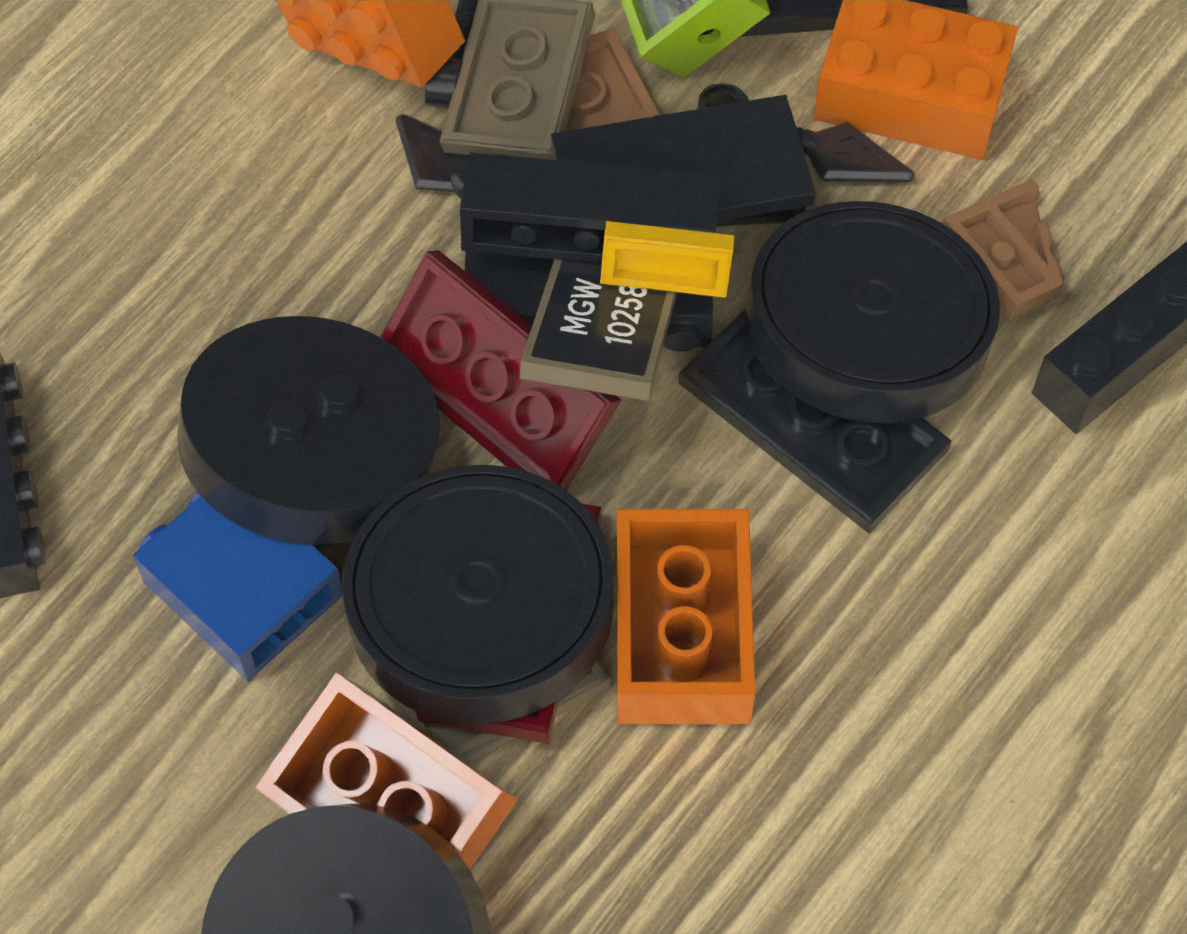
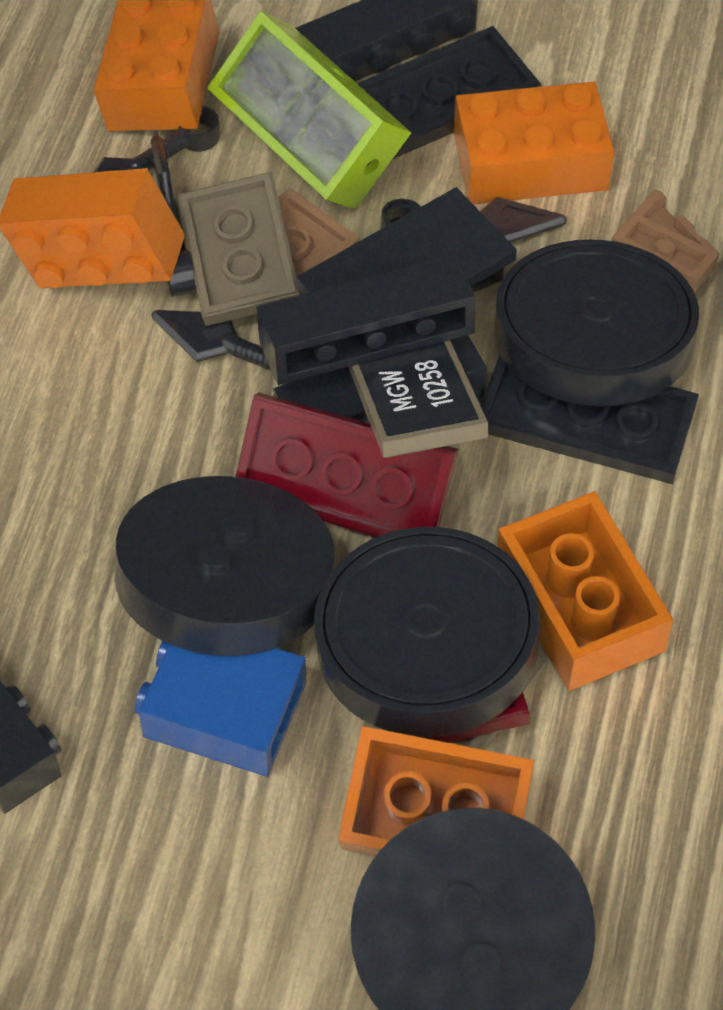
camera: 25 degrees left, 5 degrees down
(666, 259) = (444, 331): yellow tile -> none

